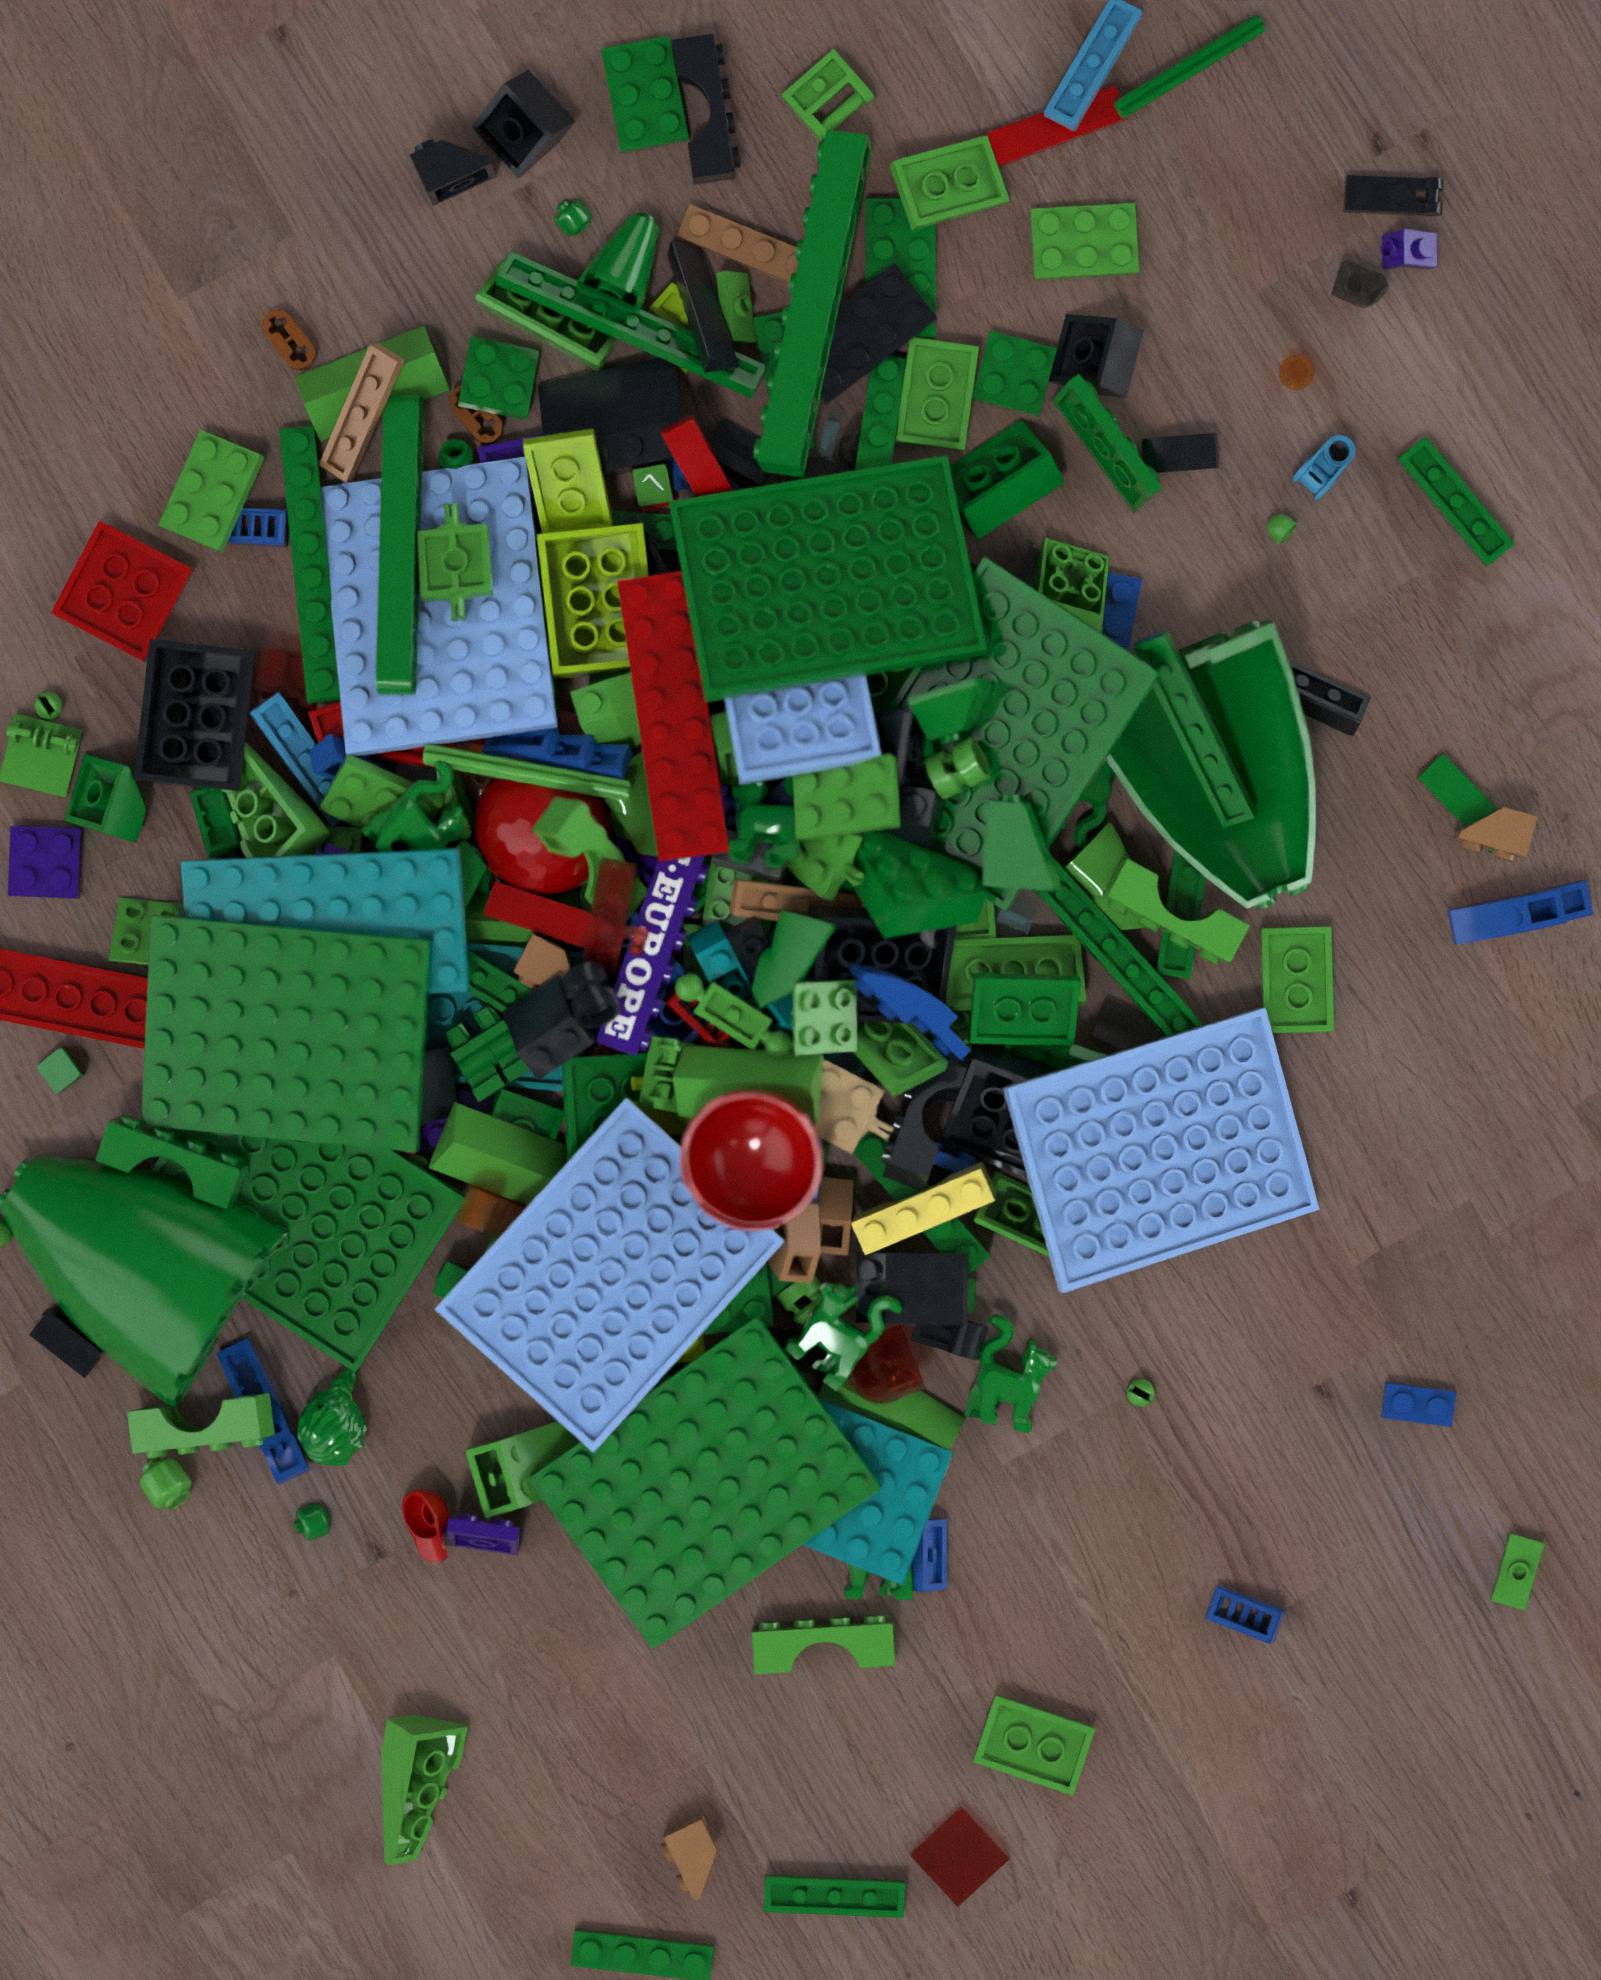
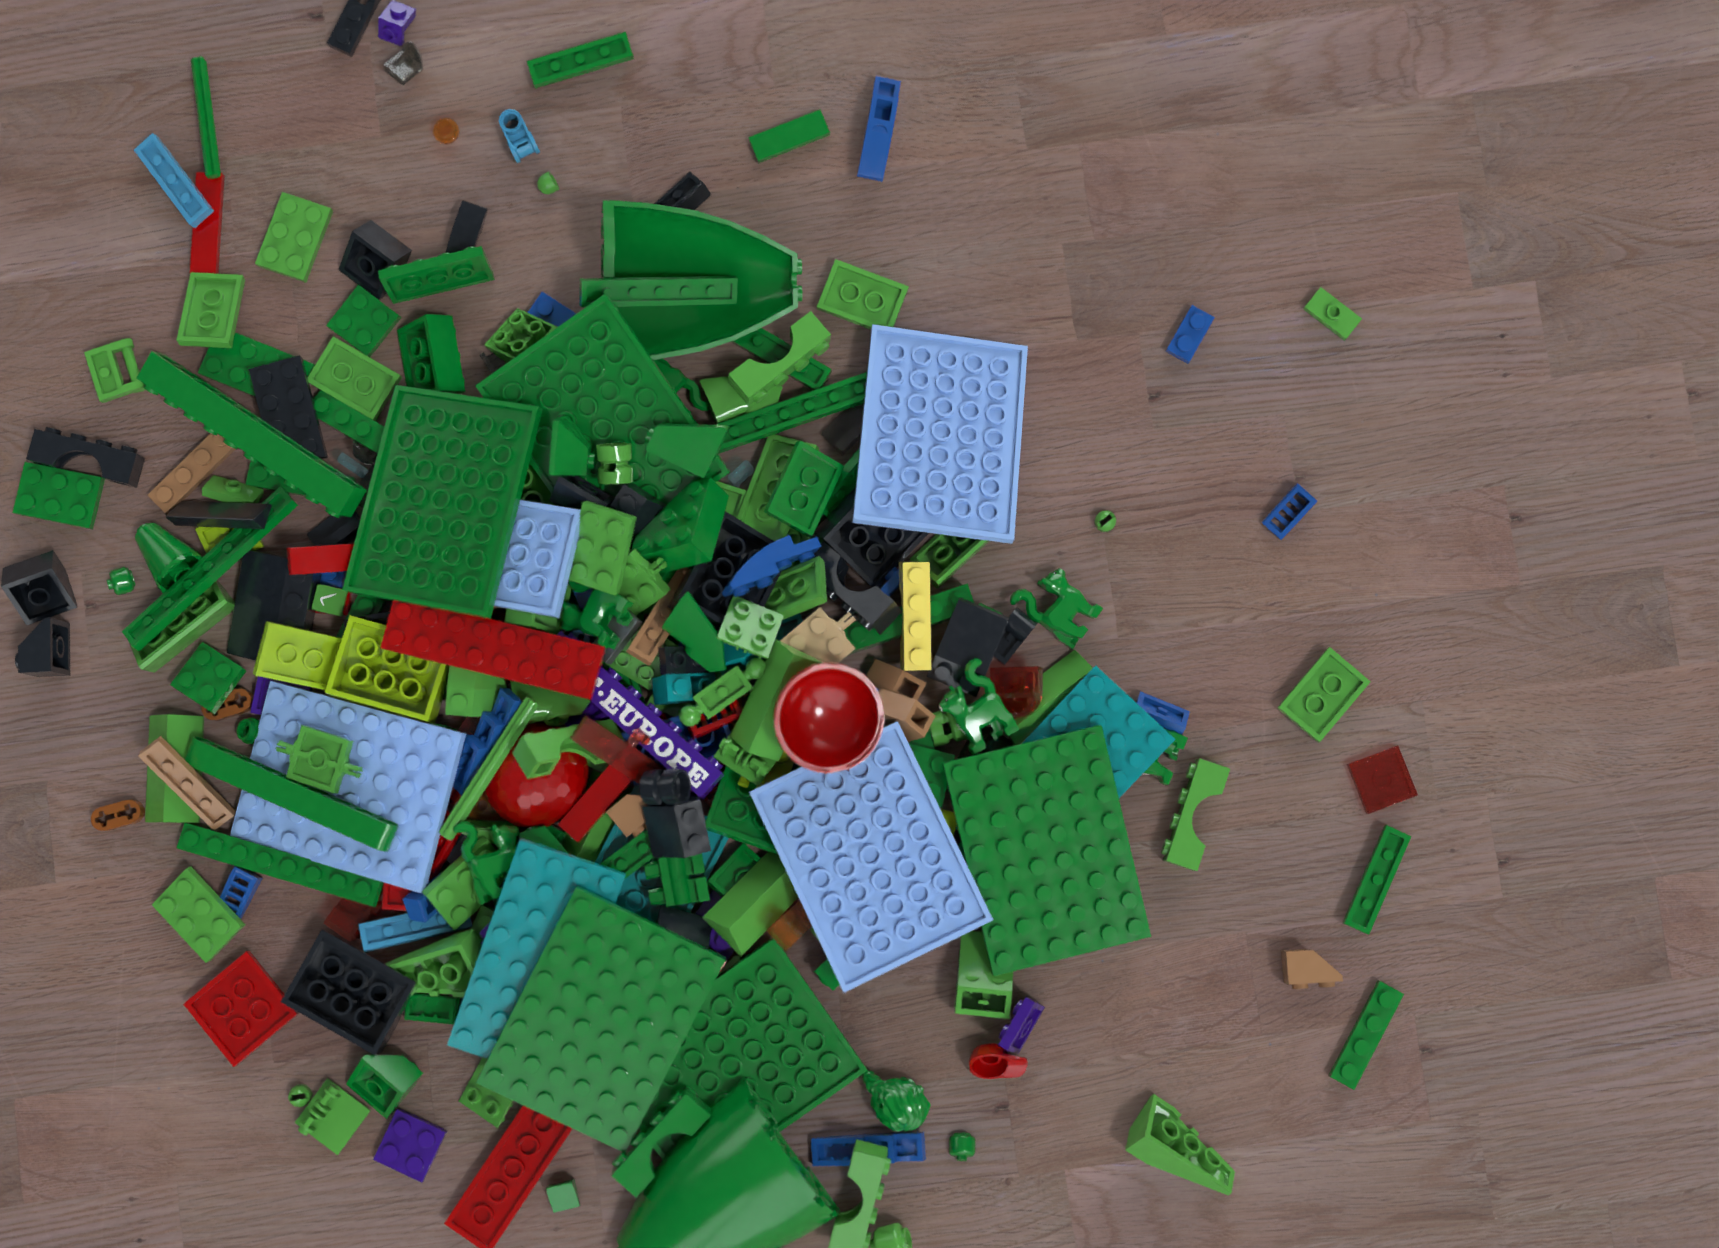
camera: 60 degrees left, 5 degrees down
(1502, 831) = (818, 116): medium nougat slope -> none

